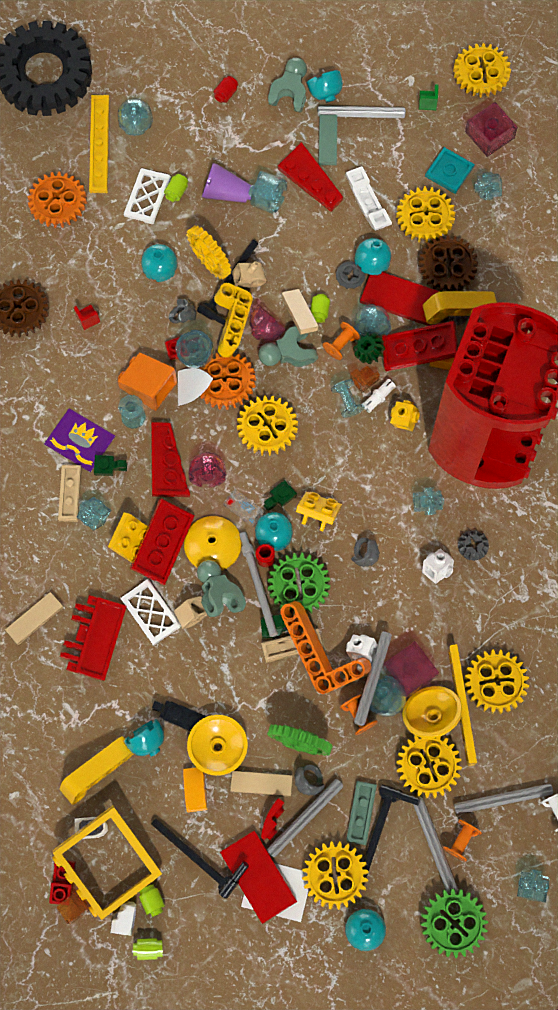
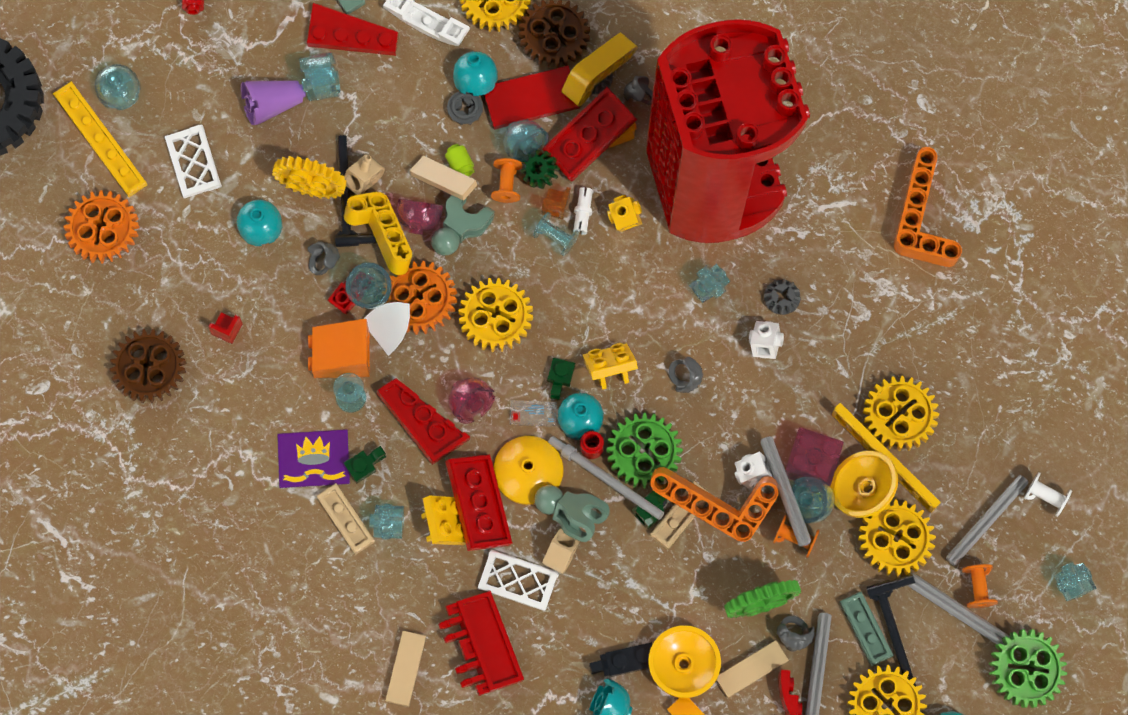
camera: 40 degrees left, 0 degrees up
(176, 187) = (219, 133): lime brick -> none

